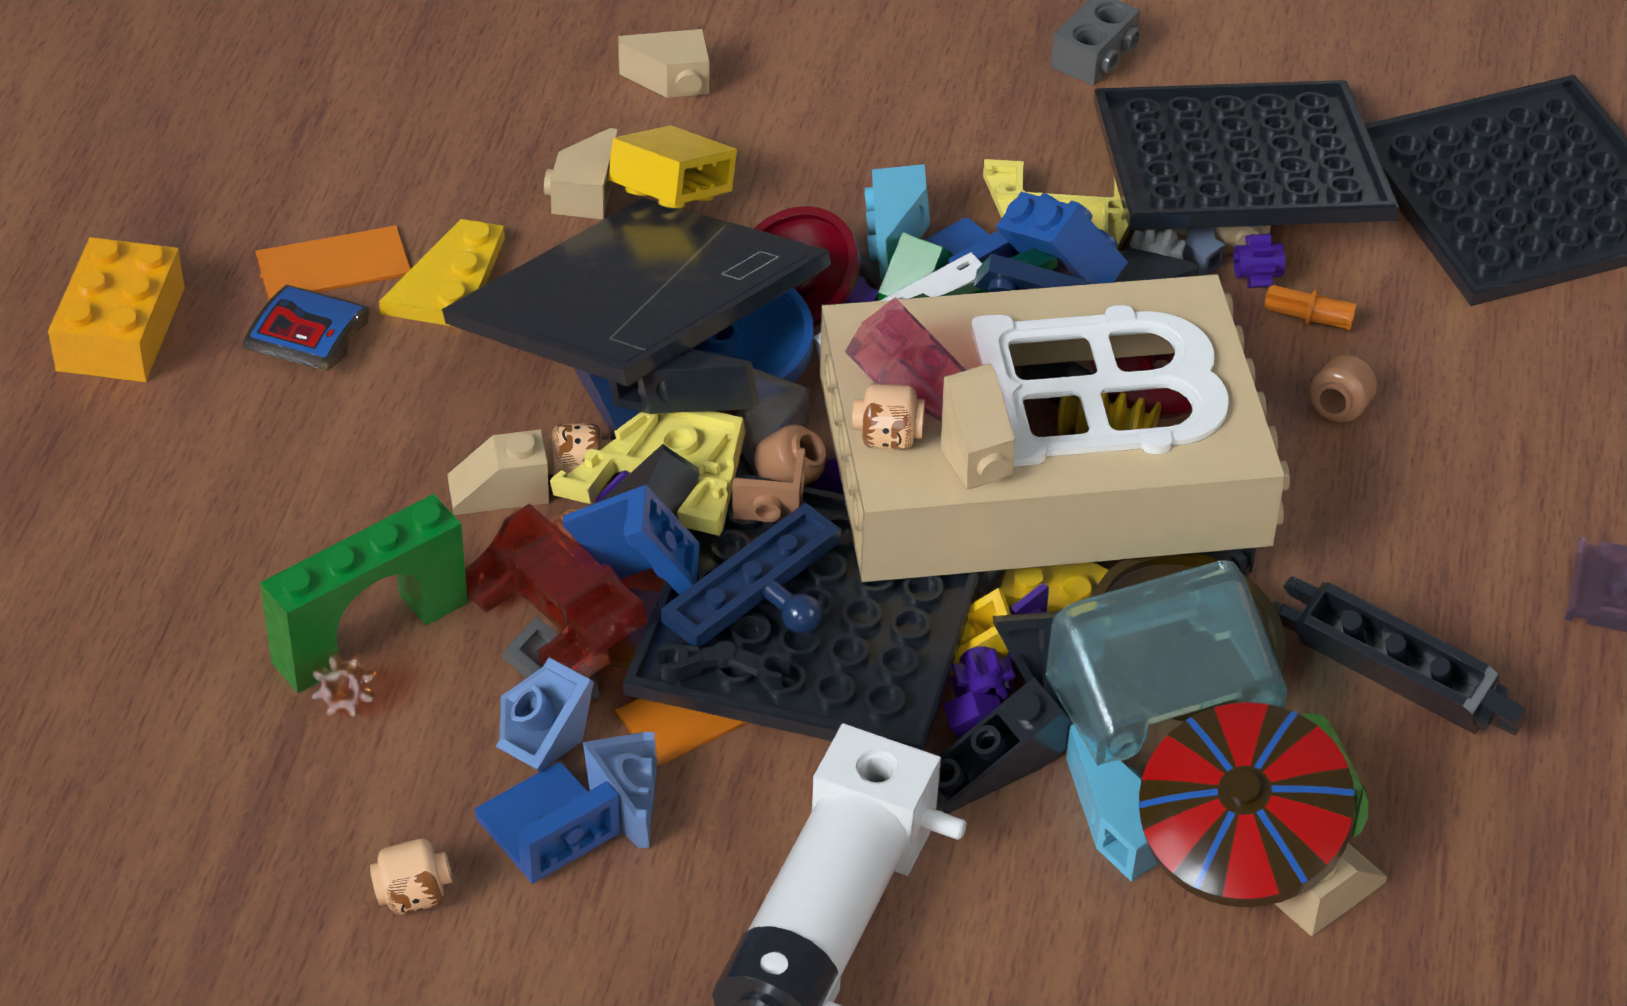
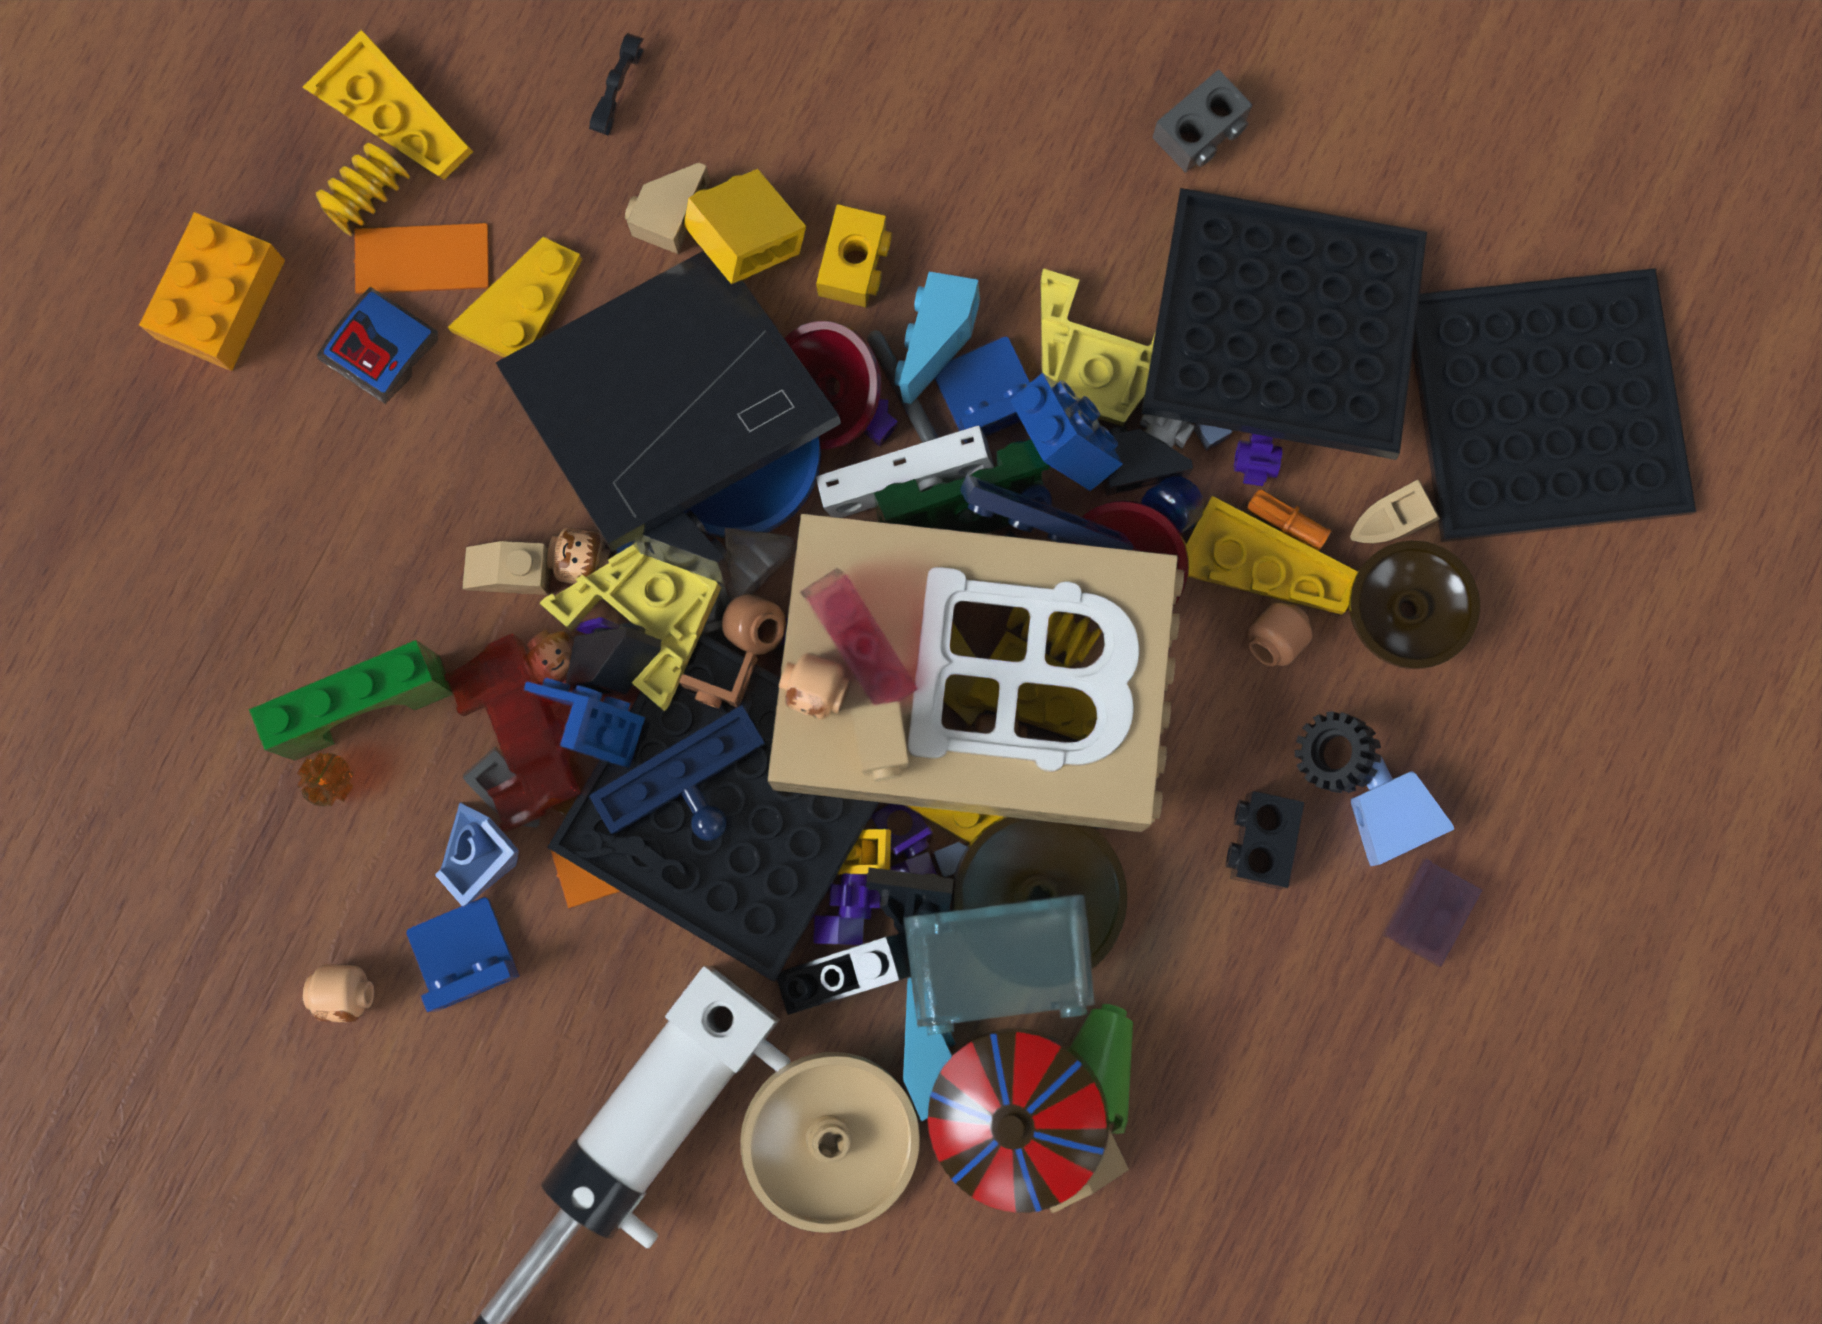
camera: 15 degrees right, 35 degrees up
(259, 207) = (360, 186): none -> yellow piece
(267, 148) = (382, 100): none -> yellow wing
(497, 118) = (604, 113): none -> black piece
(631, 770) = (531, 945): medium blue slope -> none
(666, 62) = (783, 68): tan slope -> none
(789, 174) = (850, 232): none -> yellow brick
(912, 262) = (936, 408): slope -> none
(1038, 896) = (829, 1142): none -> tan dish
(1306, 339) = (1259, 559): none -> yellow wing
(1400, 657) = (1213, 962): black hinge -> none
(1405, 554) = (1276, 843): none -> black brick
(1418, 281) = (1395, 515): none -> tan plate
(1461, 476) = (1362, 755): none -> black tyre
(1467, 335) = (1437, 589): none -> dark brown dish
(1531, 509) = (1396, 815): none -> light blue torso

